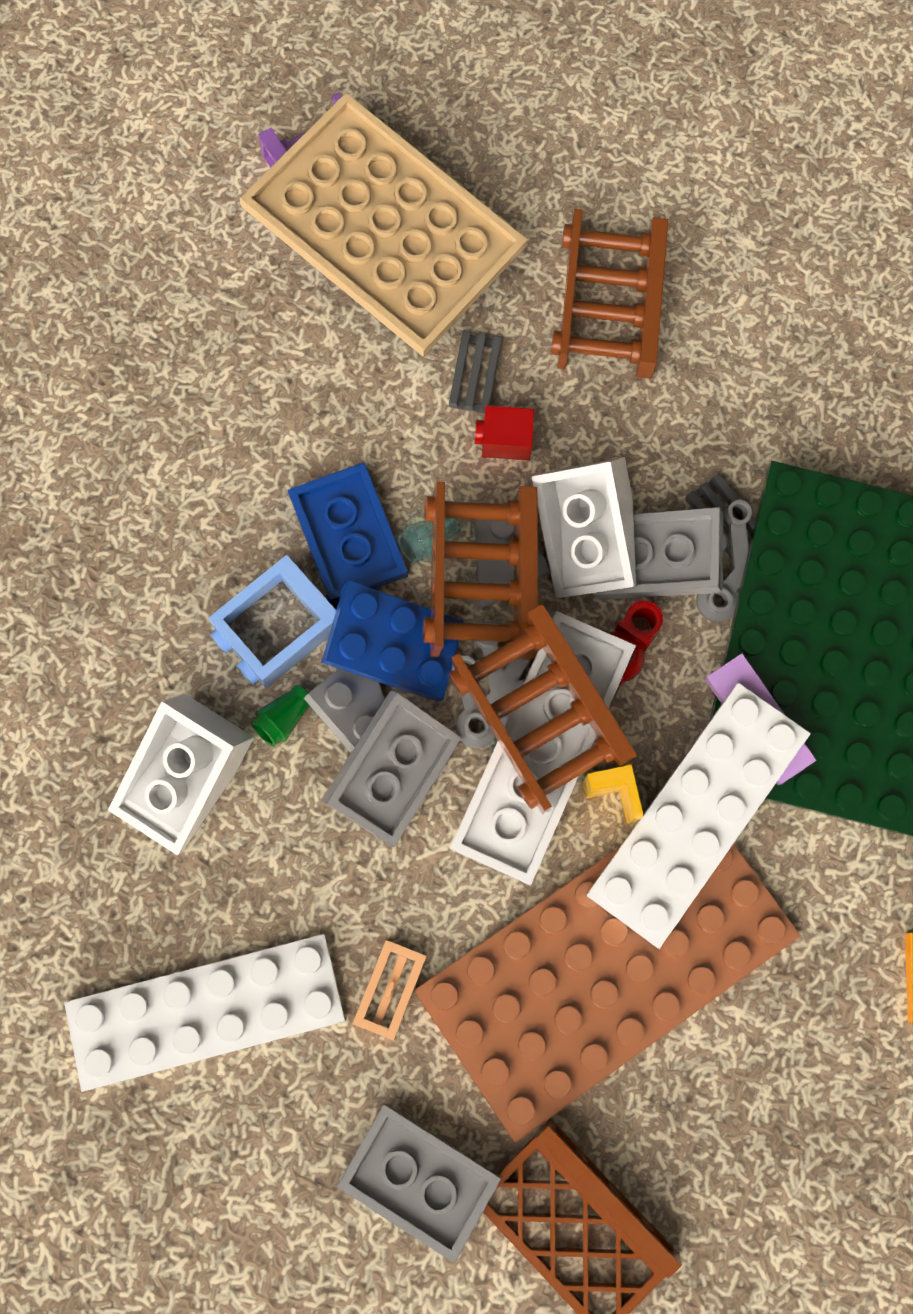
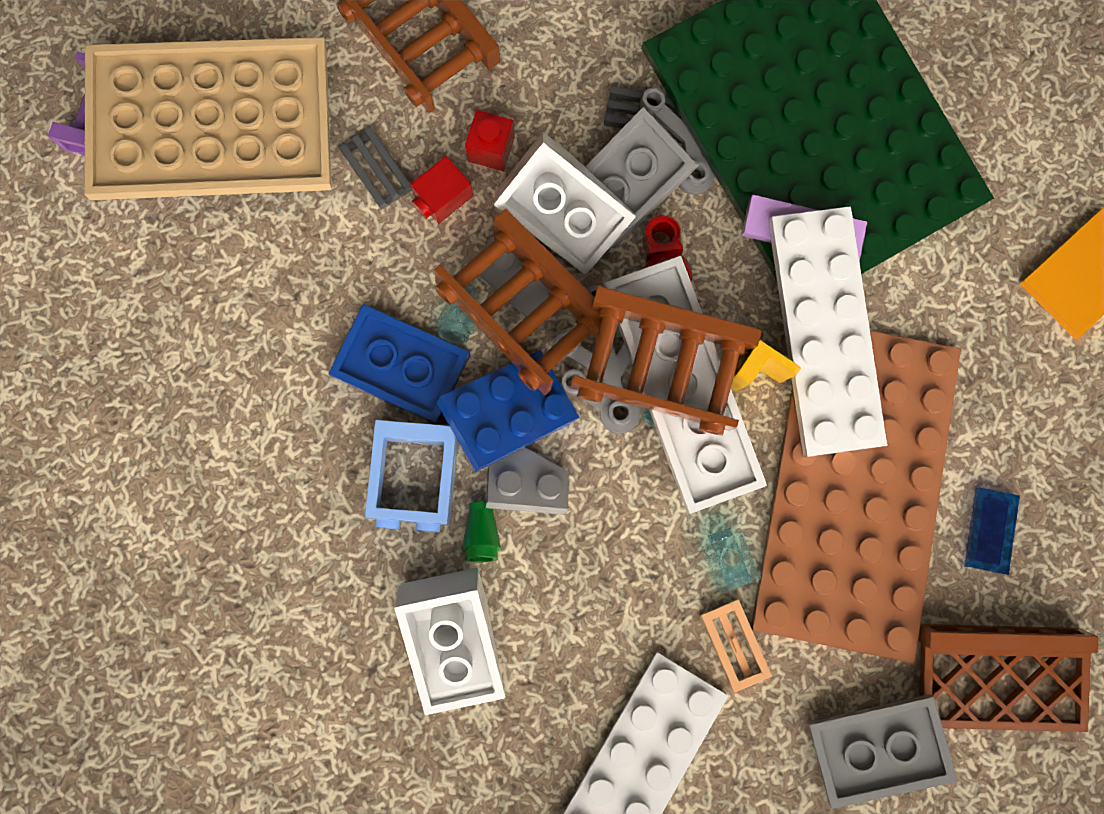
camera: 40 degrees left, 5 degrees up
(391, 769) = (594, 498): light grey plate -> none
(443, 935) = (725, 576): none -> clear light blue brick
(580, 429) = (490, 140): none -> red brick
(683, 1104) = (992, 531): none -> clear blue tile

